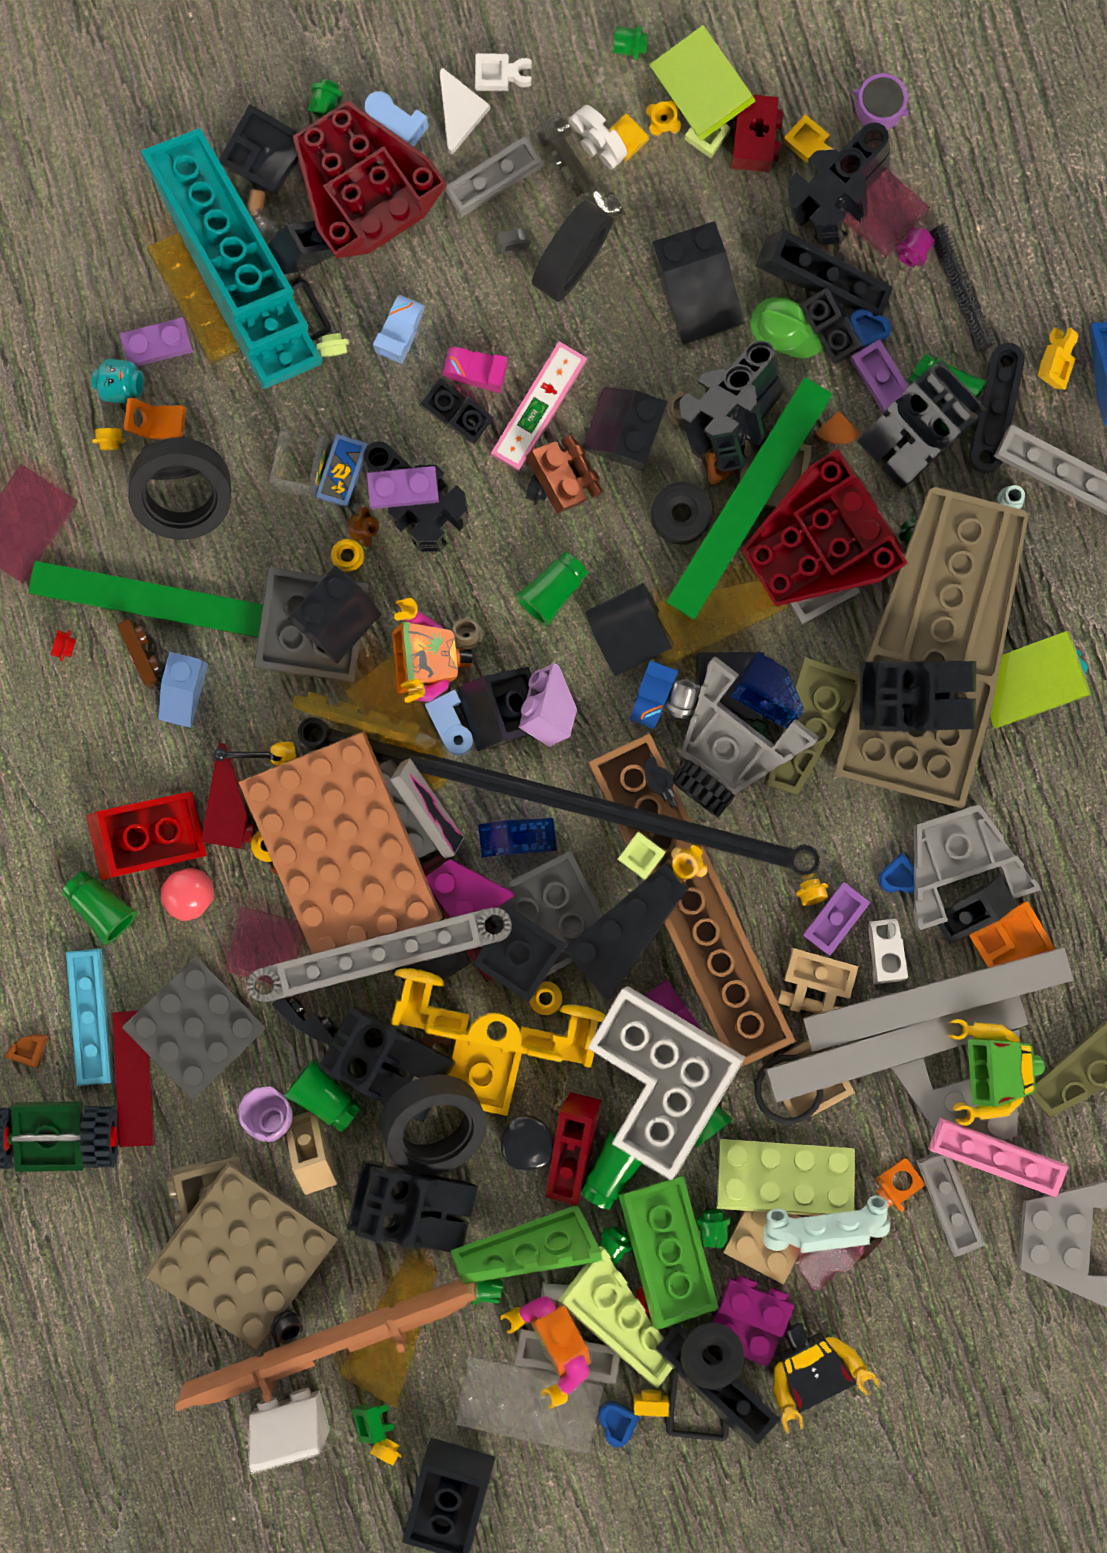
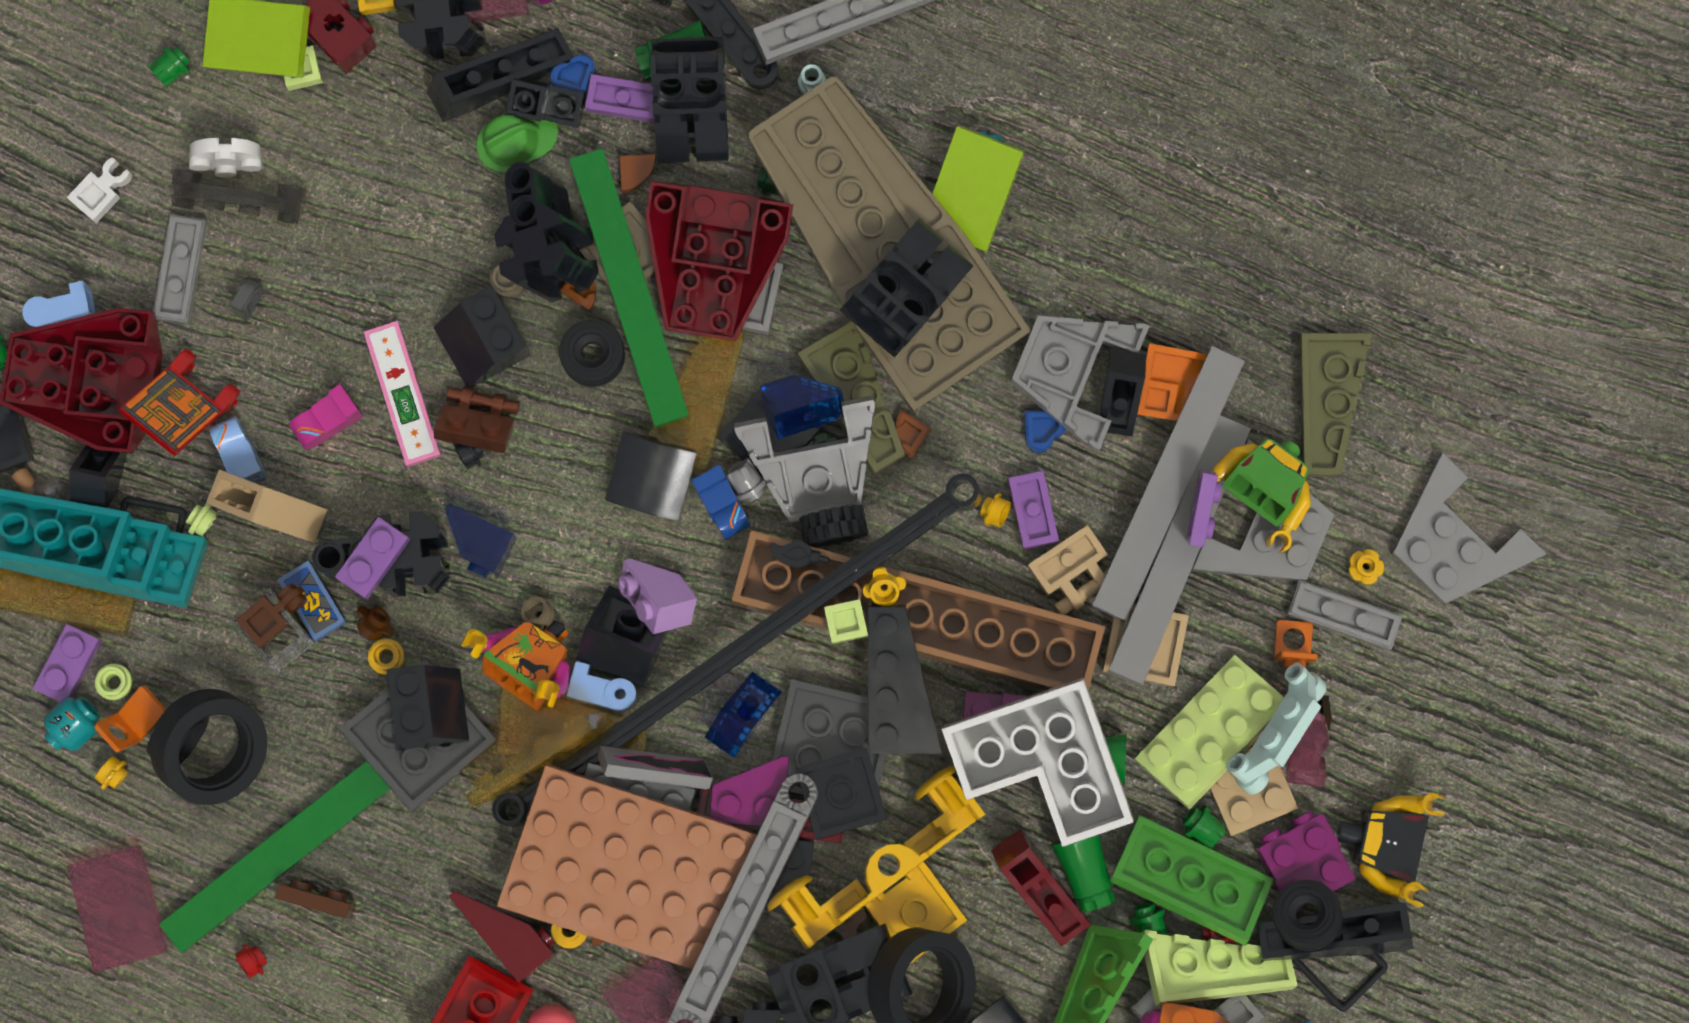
camera: 50 degrees left, 5 degrees down
(167, 375) = (103, 677): none -> yellowish green plate
(181, 689) = (376, 891): medium blue slope -> none
(278, 753) = (501, 856): hinge -> none
(298, 450) = (265, 621): none -> reddish brown plate
(378, 382) = (266, 506): none -> tan slope
(392, 259) = (175, 409): none -> flag
(456, 411) = (346, 465): black slope -> none
(461, 110) = (101, 248): white tile -> none
(481, 550) = (480, 542): none -> clear blue slope
(526, 1143) = (1003, 922): black hair -> none
(550, 1008) = (908, 804): yellow plate -> none
(552, 588) = (562, 510): green plant -> none
(572, 250) = (300, 256): black tyre -> none
(631, 134) = (245, 128): yellow plate -> none
(651, 1403) = (1305, 1002): yellow plate -> none
(667, 109) = (249, 85): yellow plate -> none
(697, 282) = (415, 179): black slope -> none
(757, 1094) = (1145, 699): black piece -> none
(817, 785) = (911, 433): none -> dark orange tile
(887, 952) = (1095, 491): white leg -> none
(928, 1047) = (1206, 492): none -> medium lavender plate
(992, 1197) = (1356, 569): none -> yellow plate
(998, 1157) = (1338, 543): bright pink tile -> none

